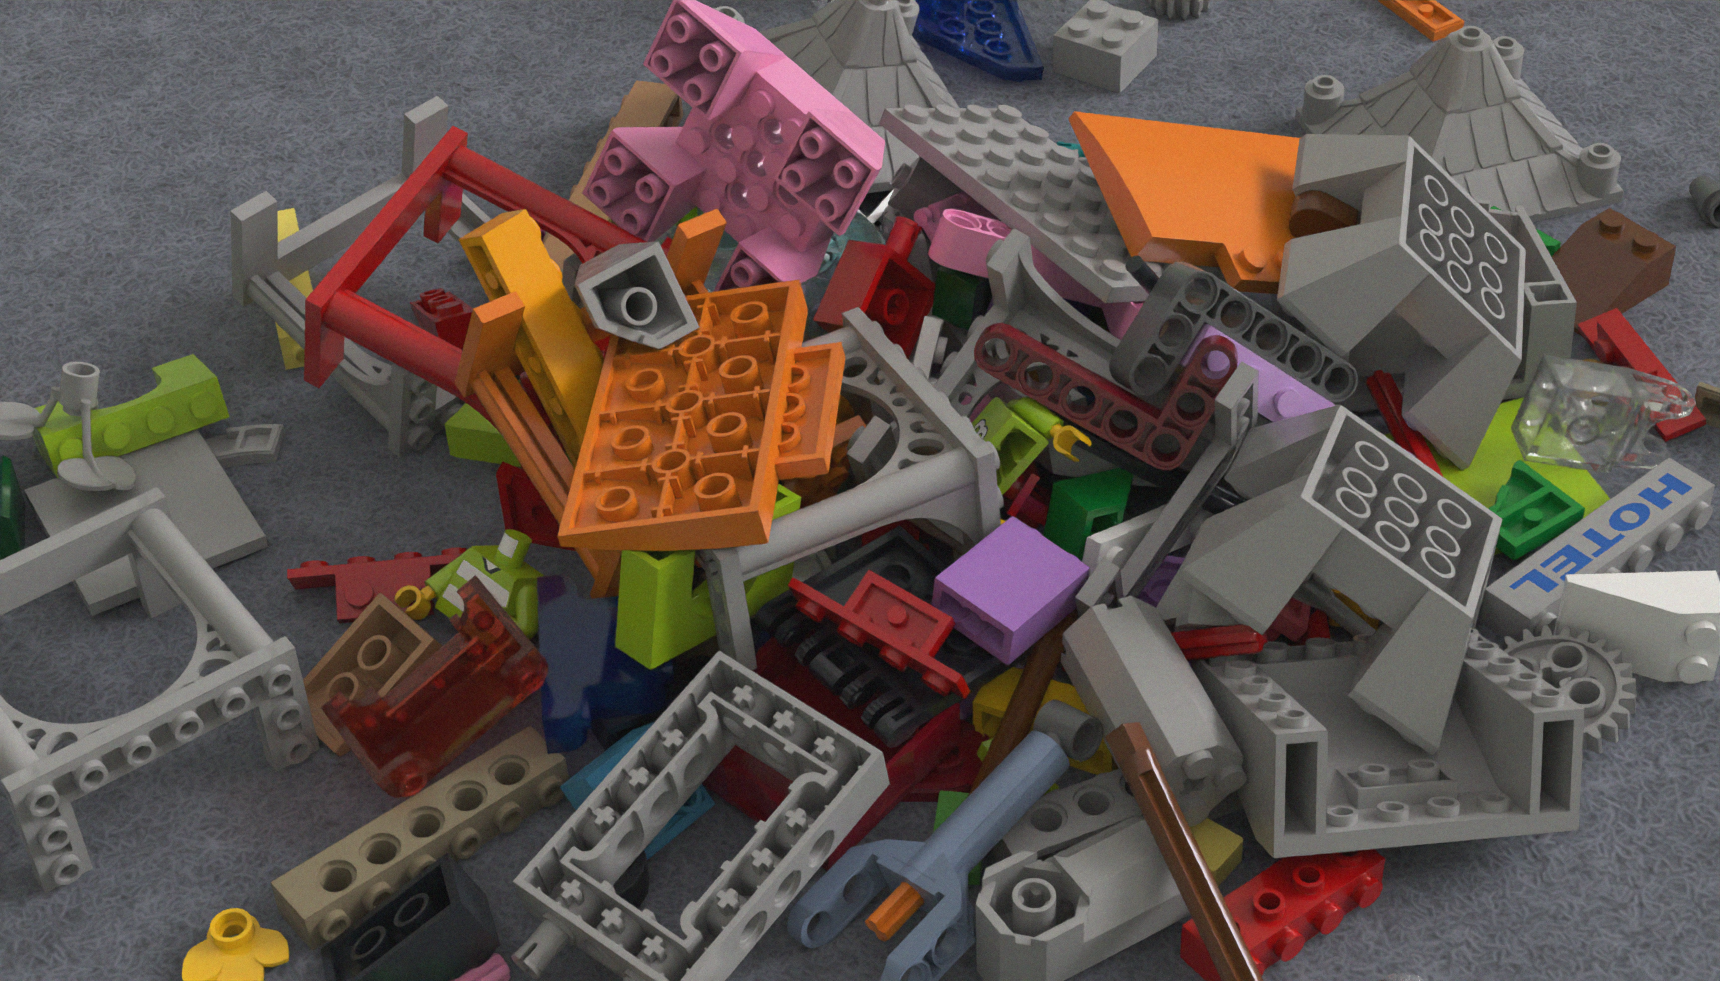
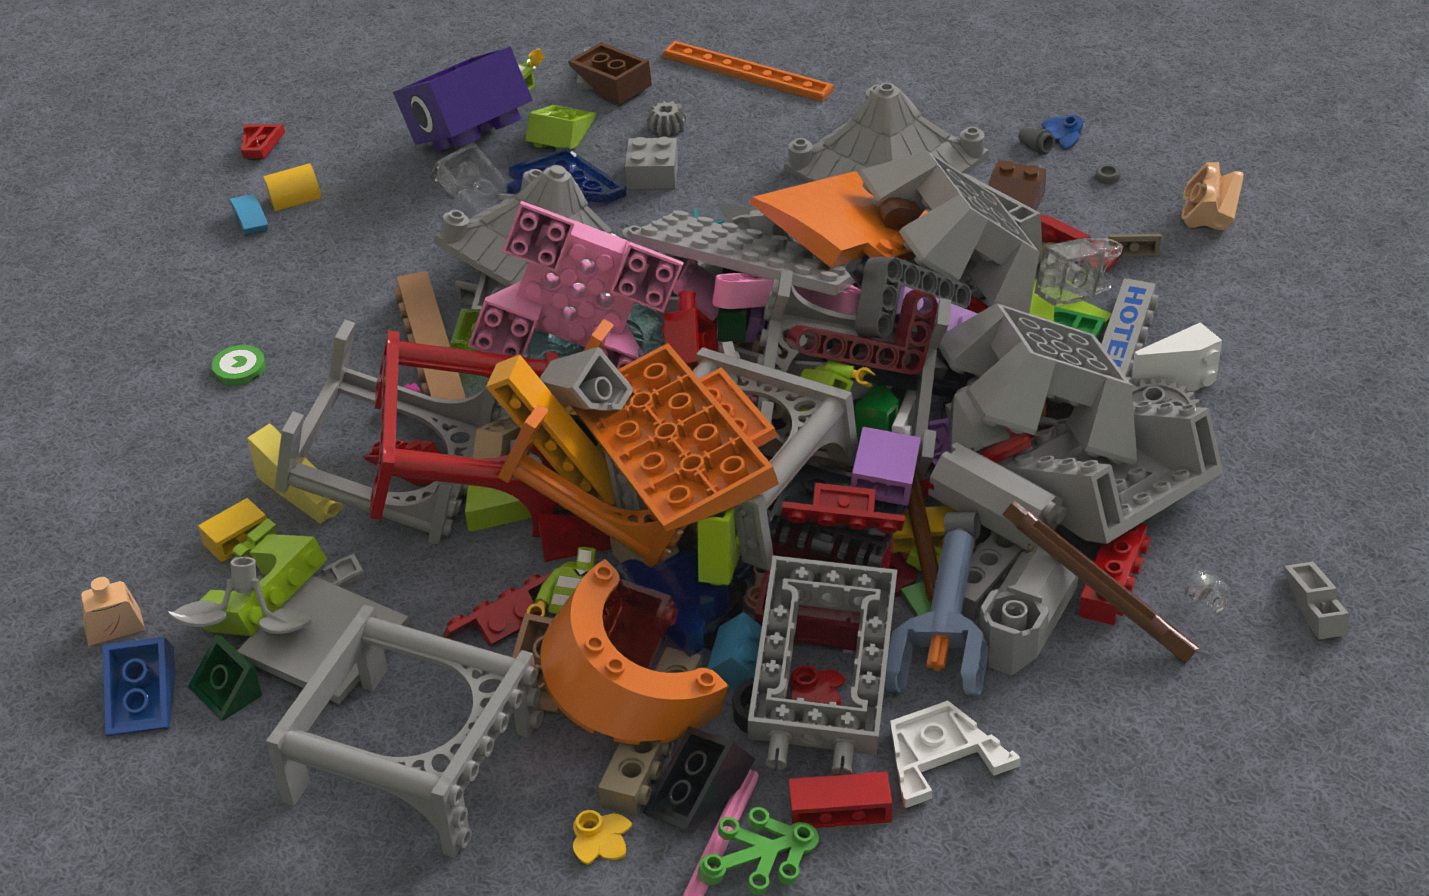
camera: 30 degrees left, 0 degrees up
(170, 332) = (230, 528): none -> yellow brick
(198, 345) = (254, 538): none -> lime plate
(368, 127) = (238, 364): none -> bright green tile
(370, 761) = (607, 690): none -> orange windscreen
(681, 884) = (820, 685): none -> red plate

